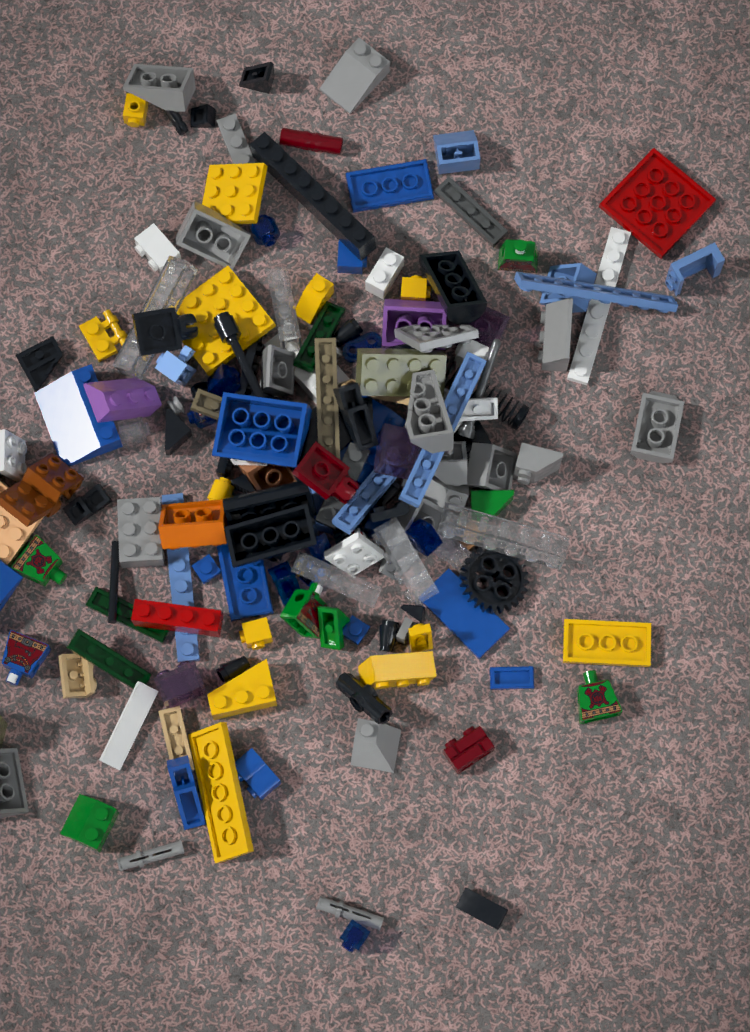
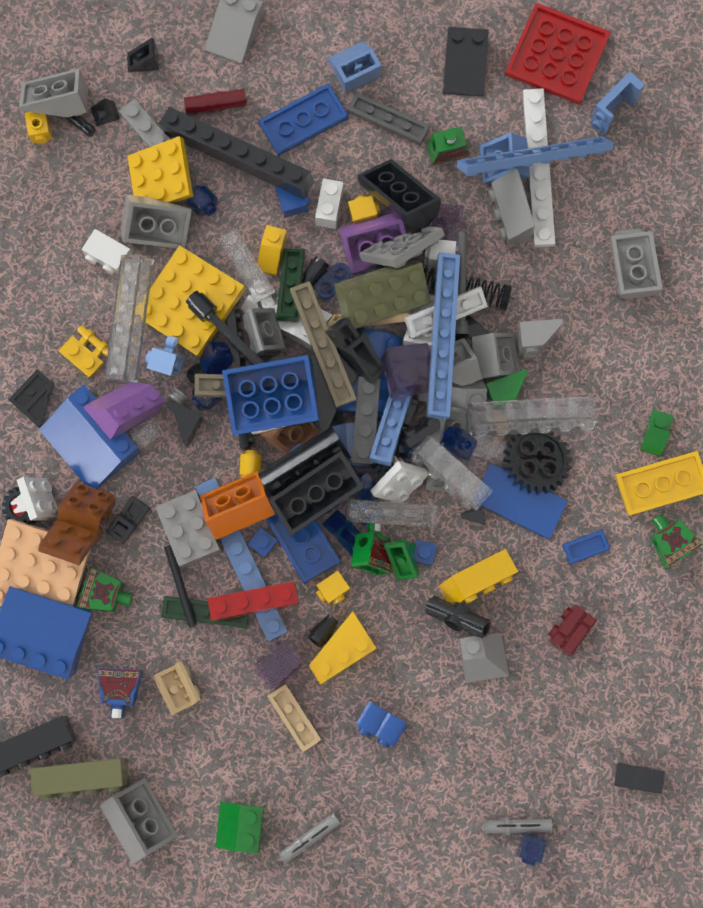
camera: 15 degrees left, 5 degrees up
(107, 659) = (203, 664): dark green tile -> none
(128, 725) = (243, 720): white tile -> none
(162, 330) = (140, 329): black plate -> none
(186, 792) = (321, 765): blue slope -> none
(220, 792) = (355, 755): yellow plate -> none
(242, 484) = (270, 450): black slope -> none
(326, 474) = (349, 416): dark red plate -> none
(387, 635) = (457, 547): black cone -> none
(403, 633) = (473, 537): light grey plate -> none
(420, 638) = (490, 540): yellow plate -> none
(427, 414) = (426, 326): light grey wedge -> none
(565, 181) = (465, 61): none -> black slope
(619, 594) = (656, 433): none -> green slope

